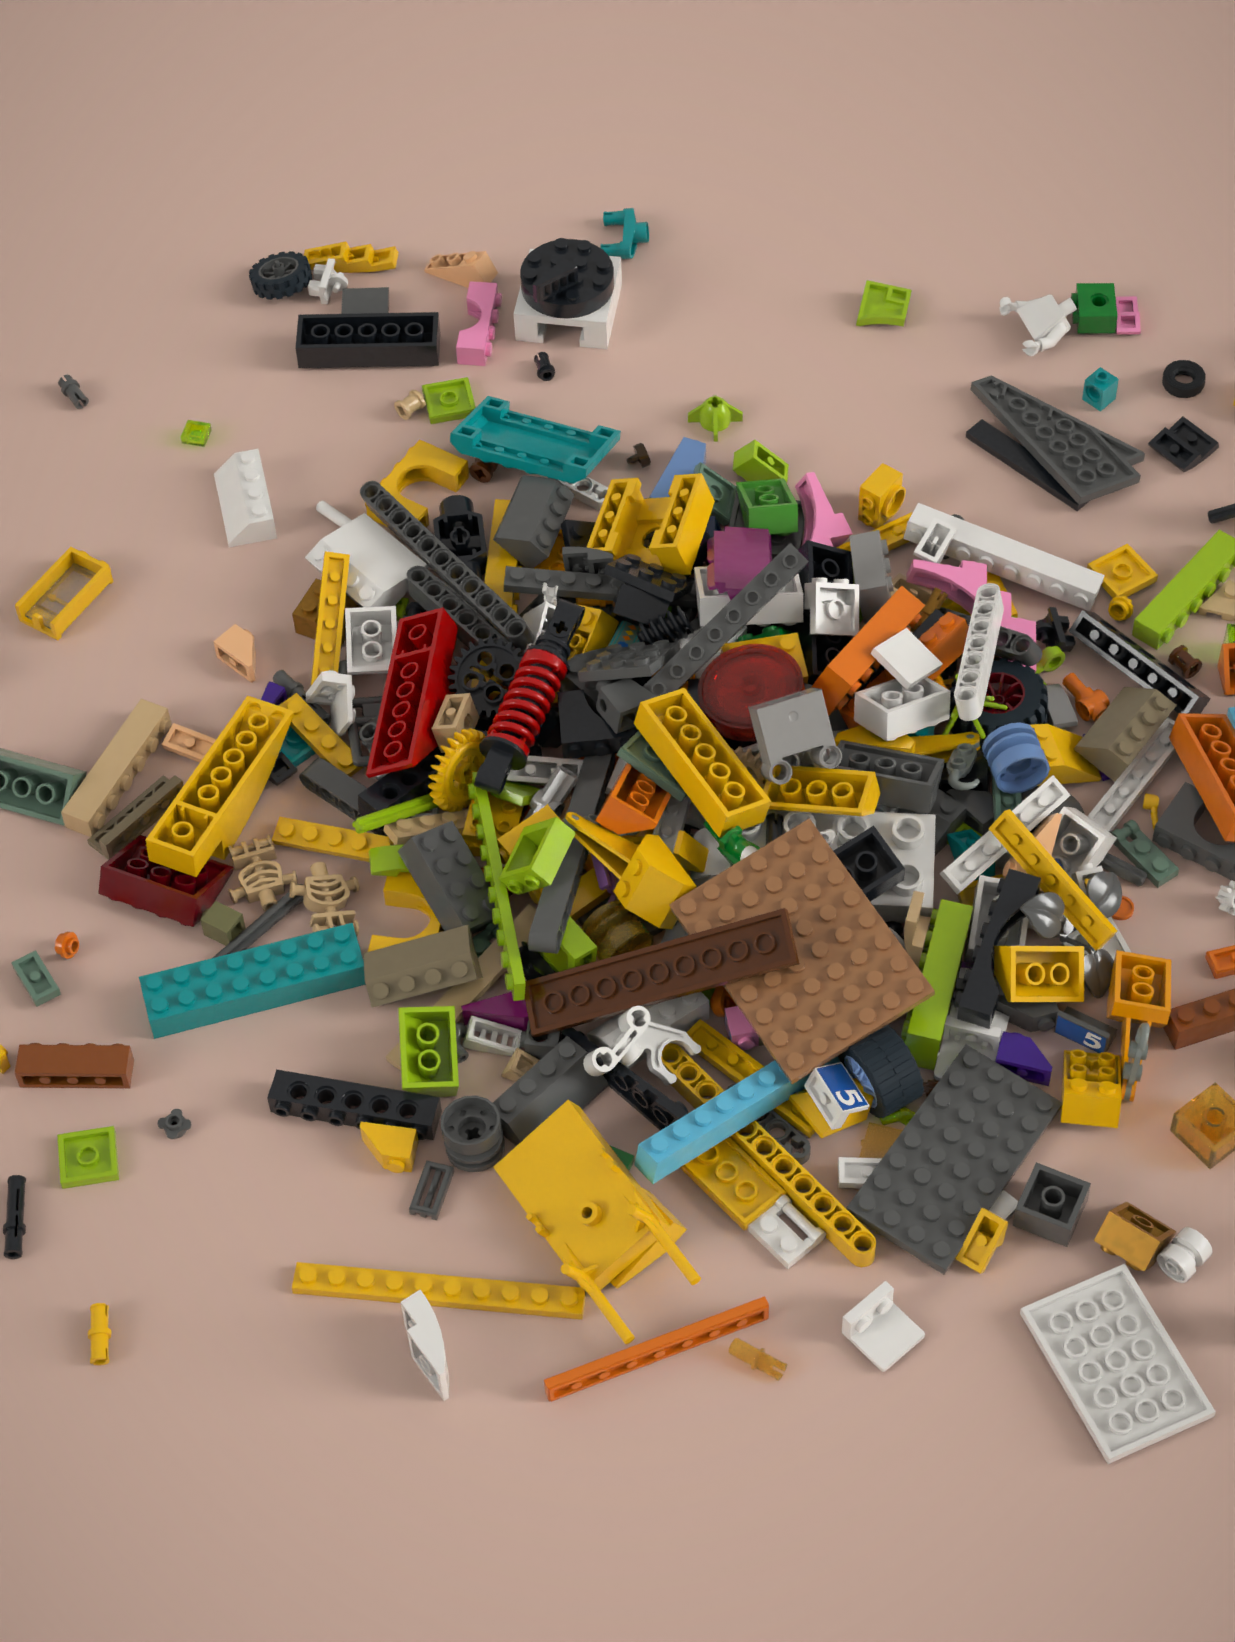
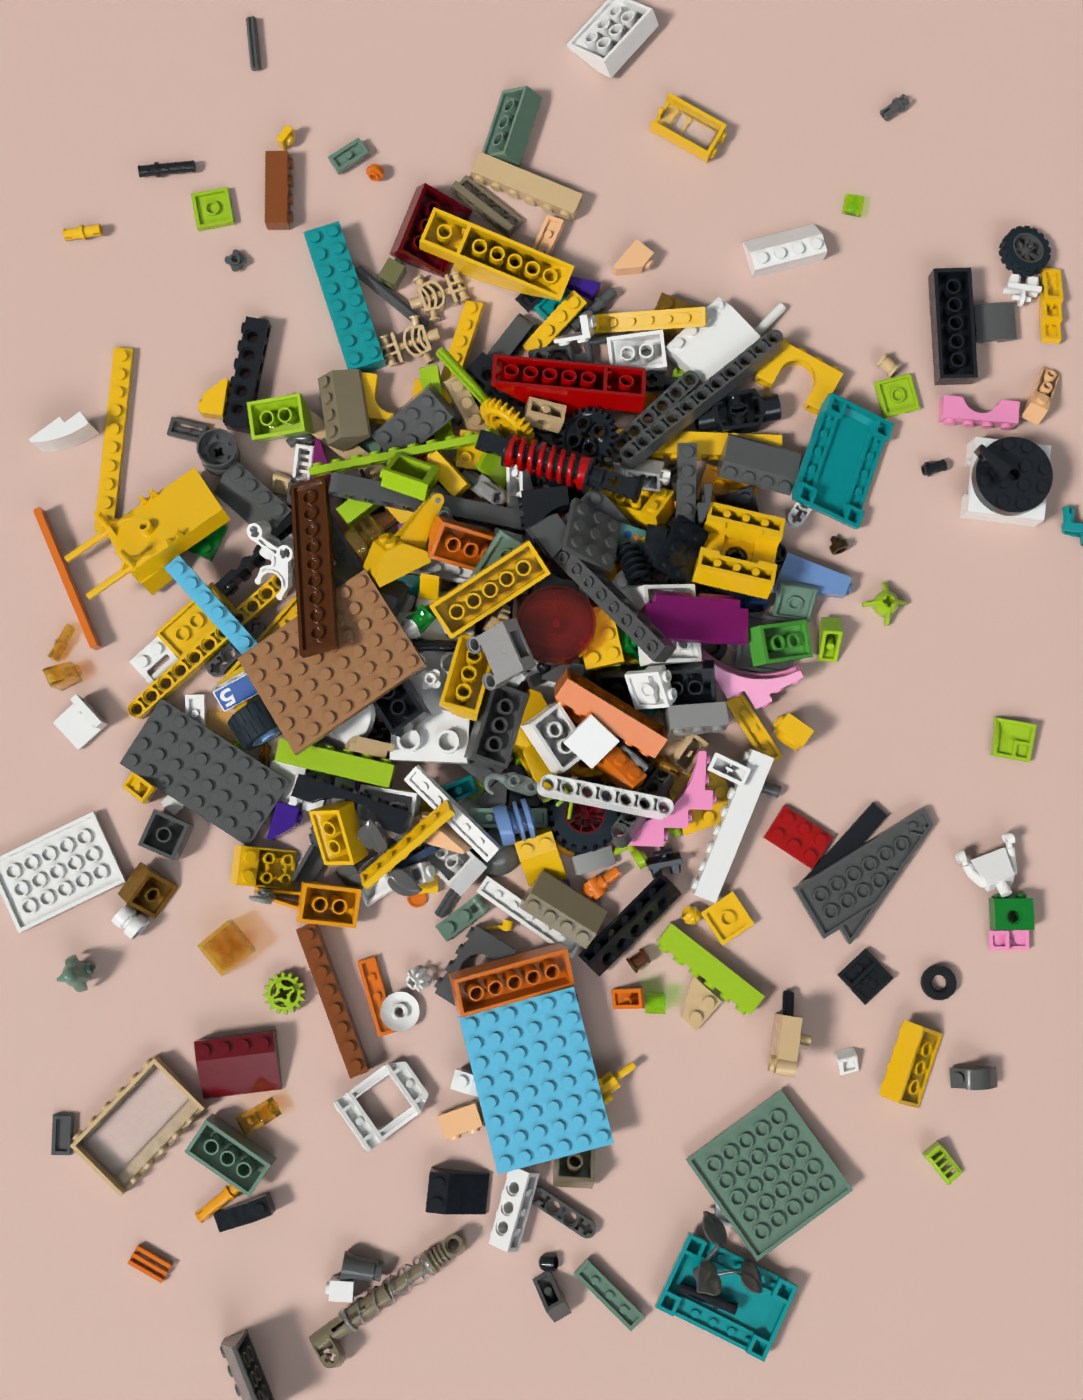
camera: 85 degrees right, 30 degrees up
(812, 1349) = (63, 675): none -> clear yellow slope
(1013, 505) = (798, 837): none -> red plate
(1100, 389) = (920, 912): teal brick -> none

